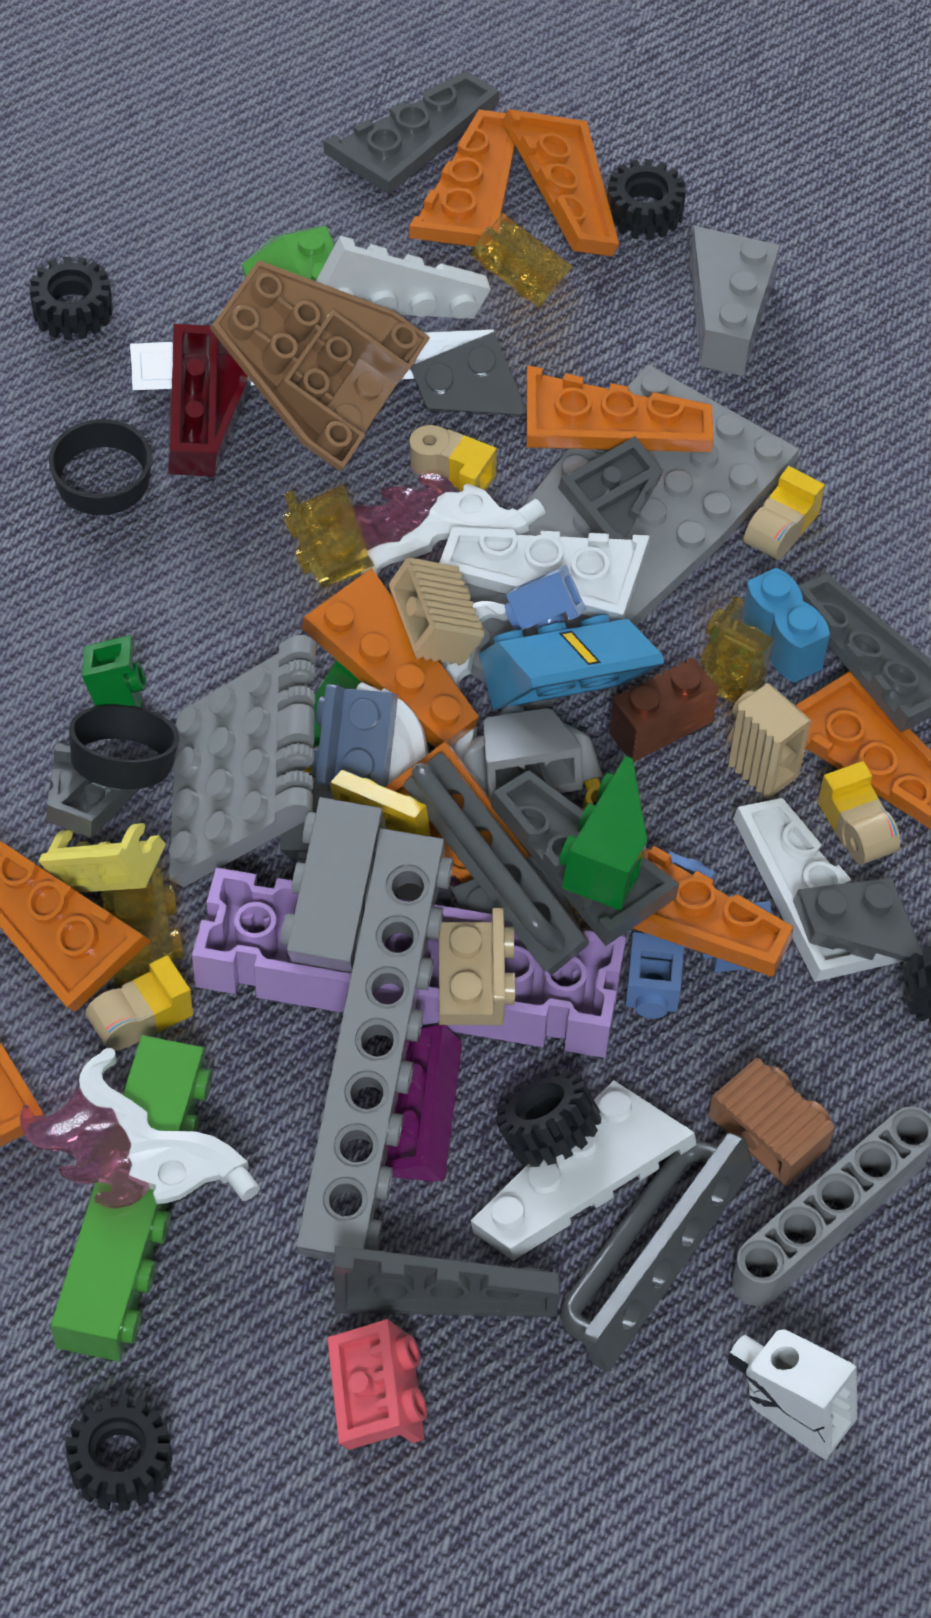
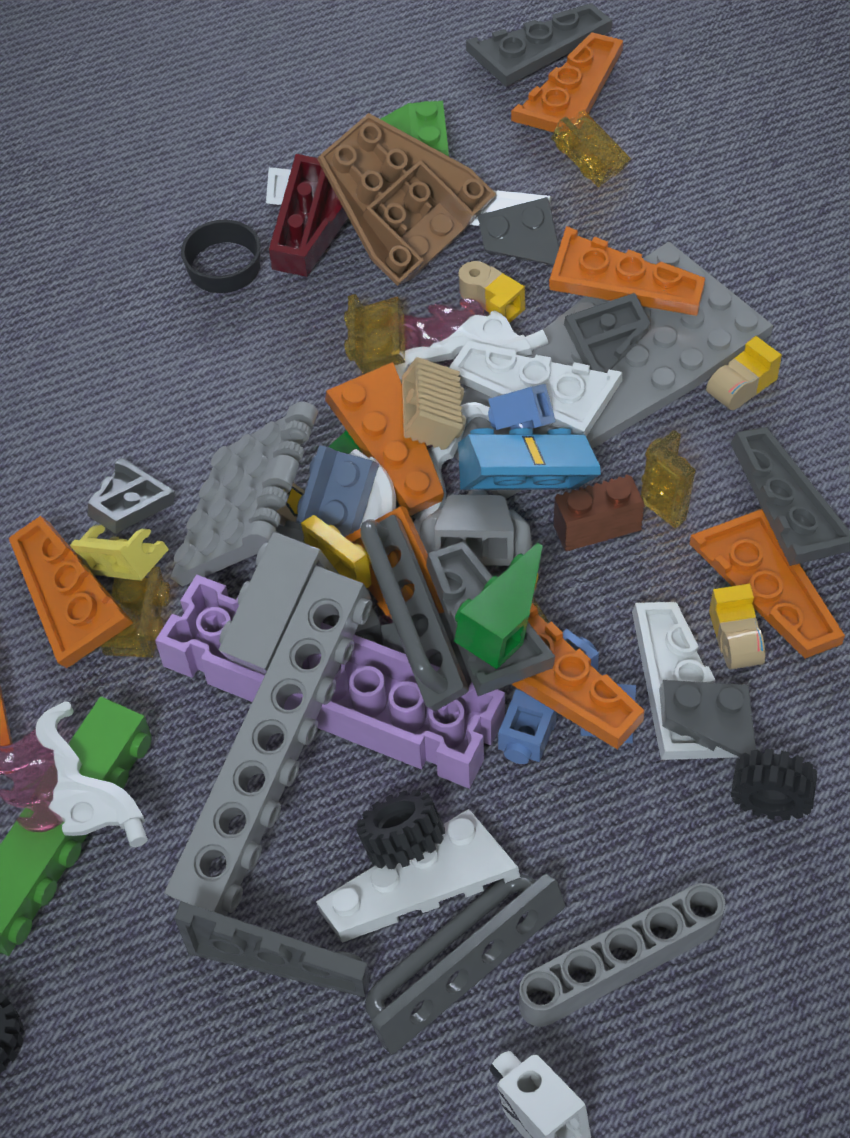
camera: 20 degrees right, 0 degrees up
(71, 316) = (242, 143): black tyre -> none
(112, 674) = (174, 415): green brick -> none
(125, 723) = (165, 449): black tyre -> none
(141, 1006) = (113, 674): leg -> none
(376, 1385) = (197, 1023): coral bracket -> none
(403, 283) = (486, 150): white wing -> none
(427, 1107) = (311, 797): magenta slope -> none
(473, 971) = (368, 697): tan bracket -> none
(568, 176) = (646, 91): orange wing -> none
(648, 182) = (704, 102): black tyre -> none
(730, 295) = (751, 198): light grey wedge -> none
(768, 740) = (674, 552): tan brick -> none
(773, 1119) = (590, 870): nougat brick -> none
(798, 629) = (719, 462): dark azure brick -> none

